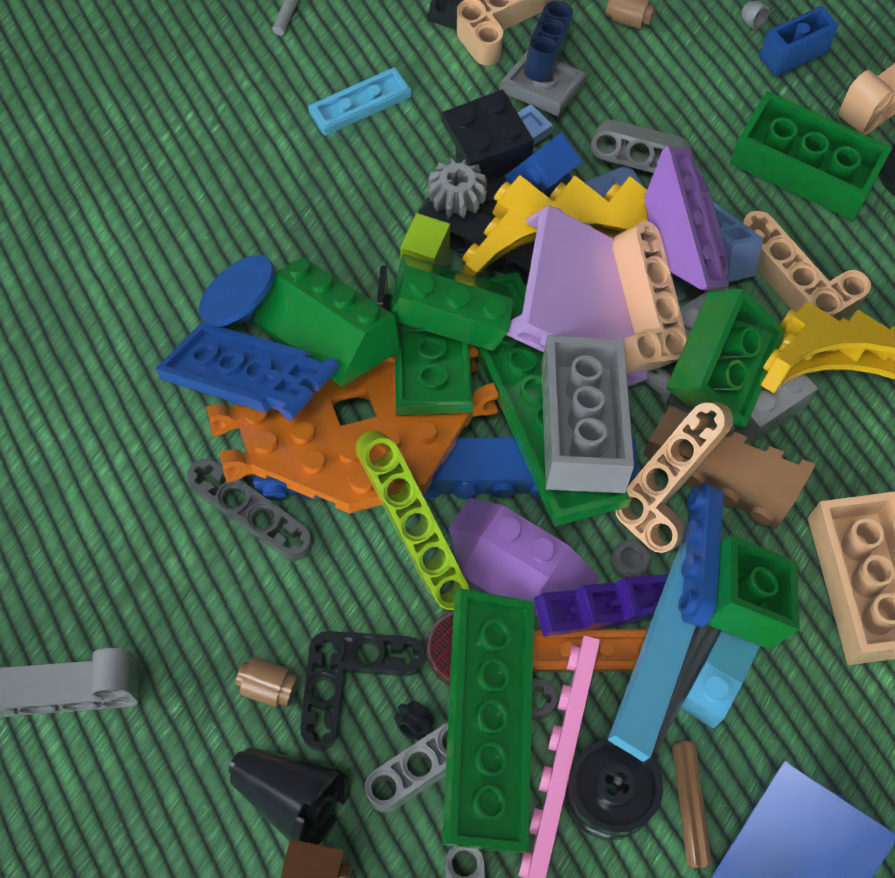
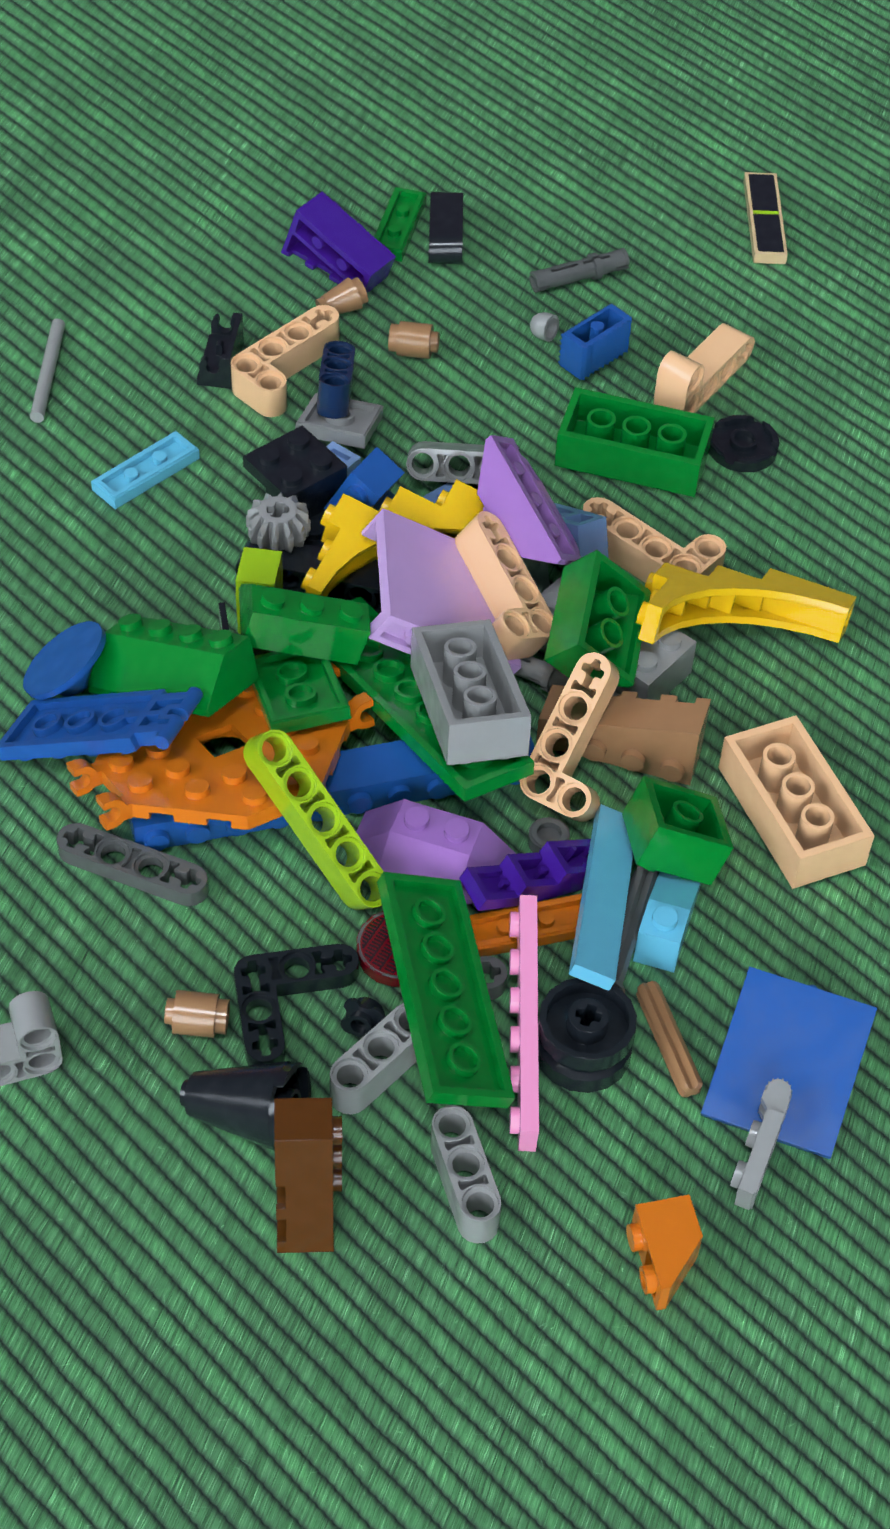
camera: 15 degrees left, 15 degrees down
(702, 555) = (619, 806): blue plate -> none

